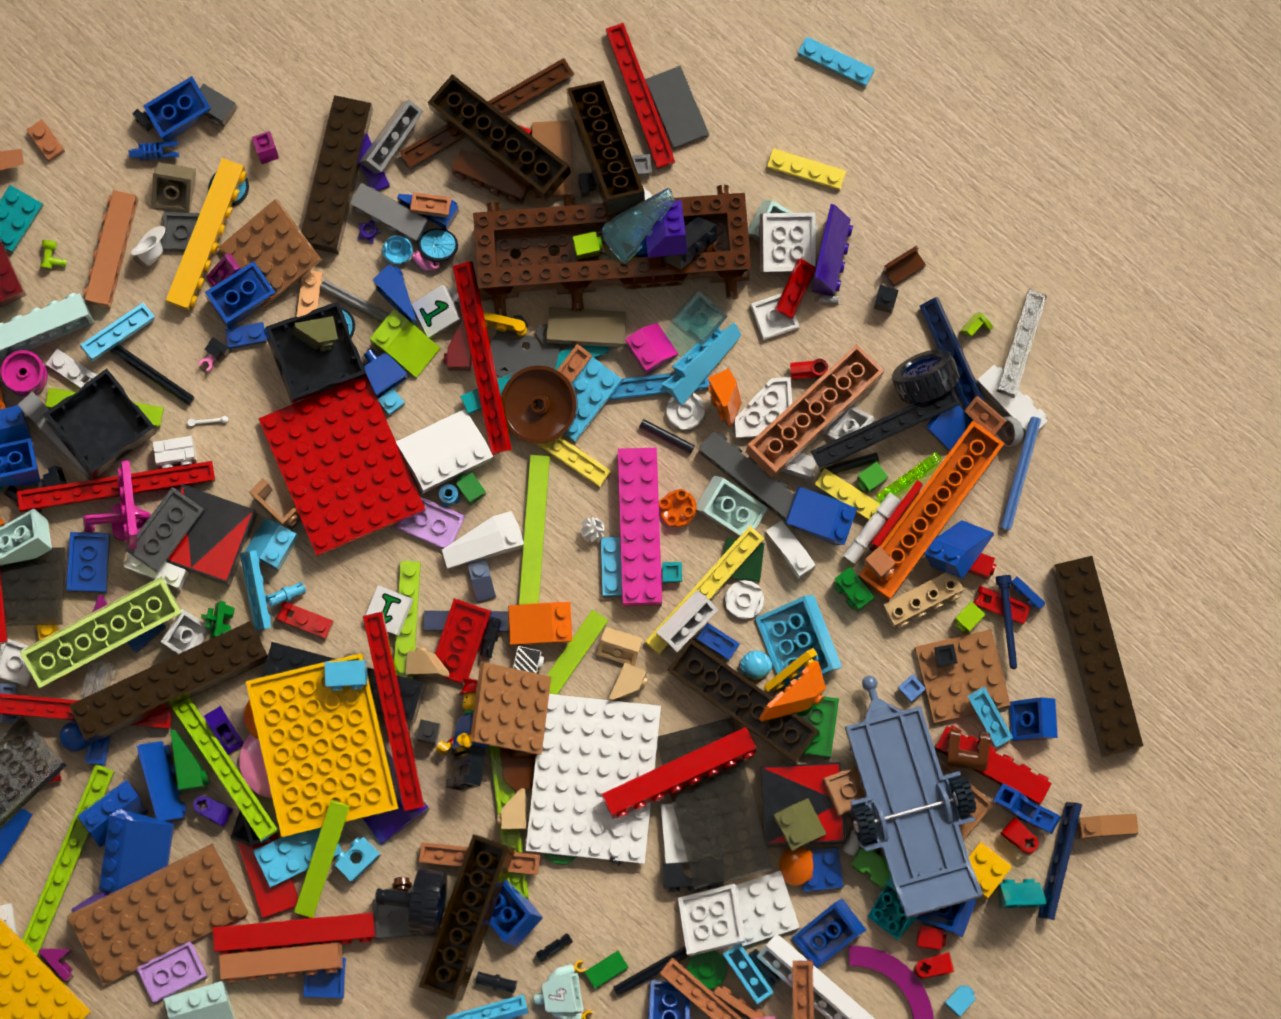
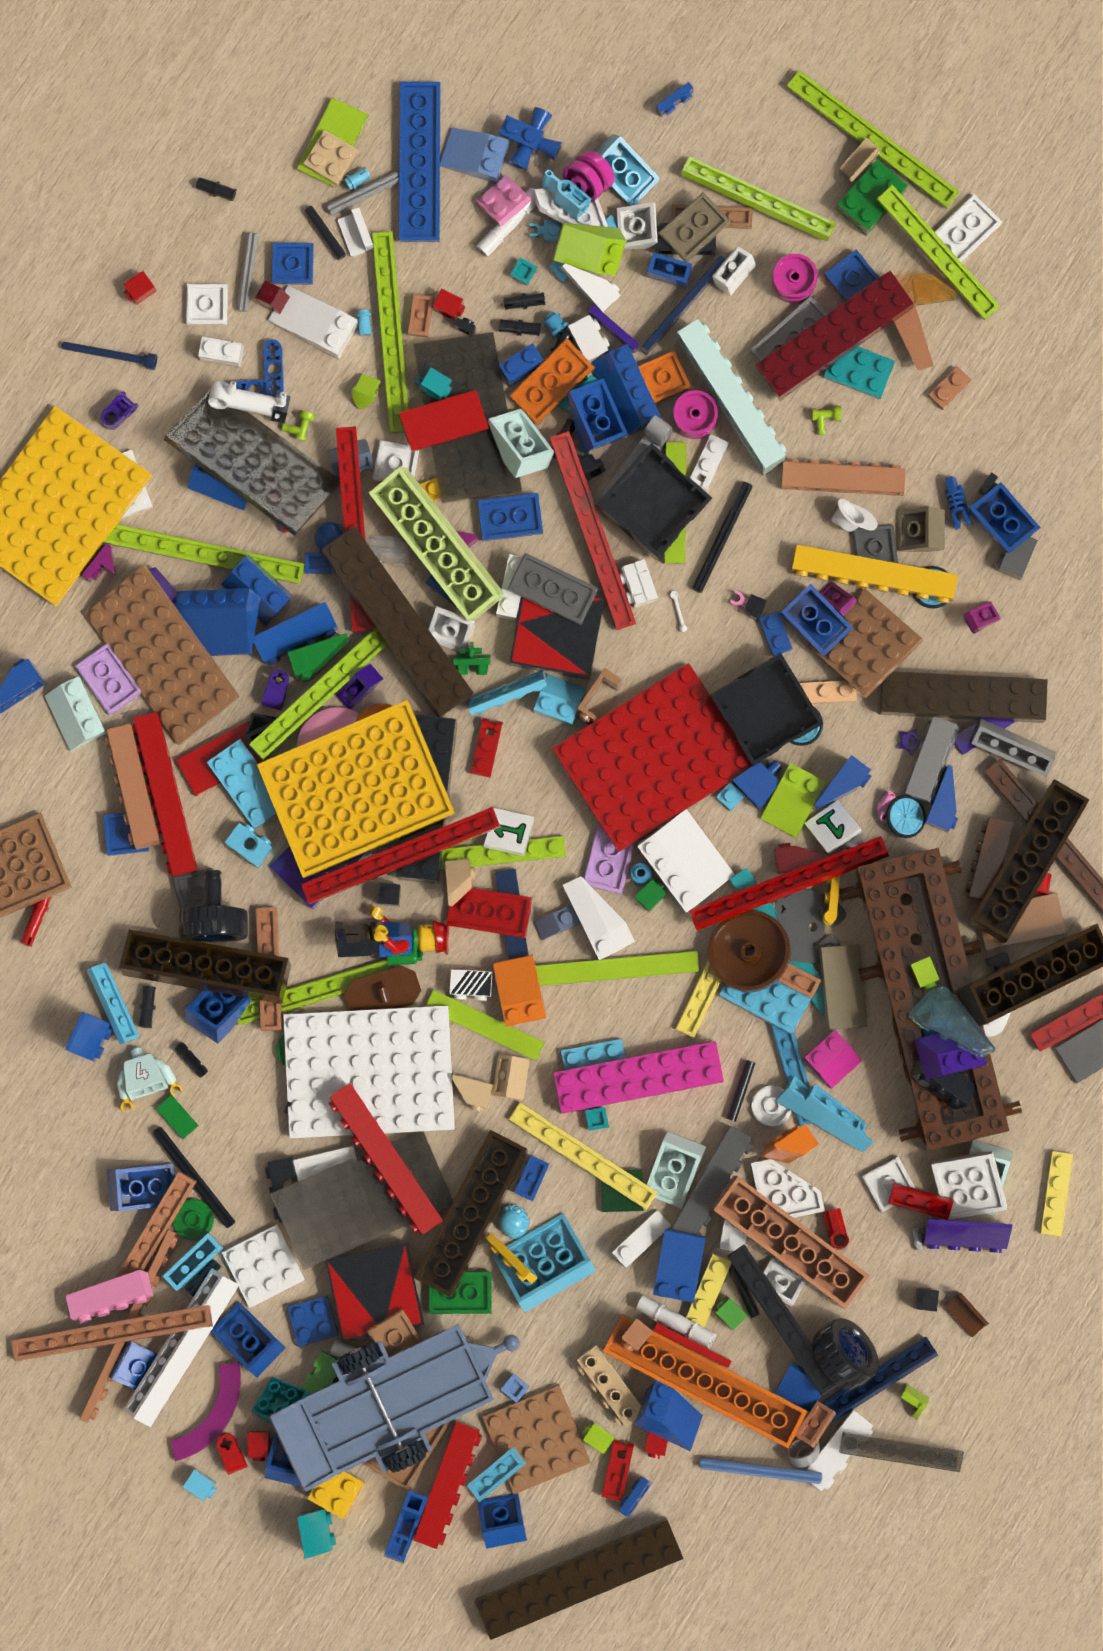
camera: 90 degrees right, 5 degrees up
(117, 332) = (755, 501): medium azure plate -> none
(125, 516) = (563, 545): dark pink plate -> none
(285, 594) = (508, 724): medium azure pin -> none
(317, 333) = (784, 708): olive slope -> none
(322, 858) = (241, 809): lime tile -> none
(346, 674) = (428, 800): medium azure brick -> none
(354, 301) = (830, 740): light grey axle -> none
(397, 249) = (892, 775): medium azure hair -> none
(402, 884) = (230, 894): reddish brown plate -> none
(430, 205) = (944, 801): nougat plate -> none
(490, 637) = (497, 941): black pin -> none
(510, 708) = (422, 975): medium nougat plate -> none
(514, 813) = (318, 996): tan slope -> none
(592, 529) = (628, 1028): white gear -> none
(643, 164) = (1029, 1016): flat silver plate -> none
(678, 508) = (665, 1114): orange dish -> none
(687, 621) = (544, 1142): white brick -> none
(699, 317) = (871, 1104): clear light blue slope -> none
(711, 920) = (241, 1216): white plate -> none
(744, 600) = (580, 1199): white tile -> none
(796, 866) = (311, 1295): orange dish -> none
(799, 695) = (483, 1270): orange wedge -> none
(799, 825) = (350, 1292): olive slope -> none
(853, 589) = (606, 1314): green brick -> none
(910, 476) = (739, 1354): clear neon green beam -> none
(945, 655) = (552, 1418): black plate -> none
(967, 758) = (447, 1456): reddish brown connector -> none
(1004, 584) = (639, 1469): dark blue piece -> none
(1017, 834) = (379, 1520): red piece -> none
(1060, 860) = (359, 1569): dark blue tile -> none
(1107, 826) = (403, 1614): medium nougat slope -> none

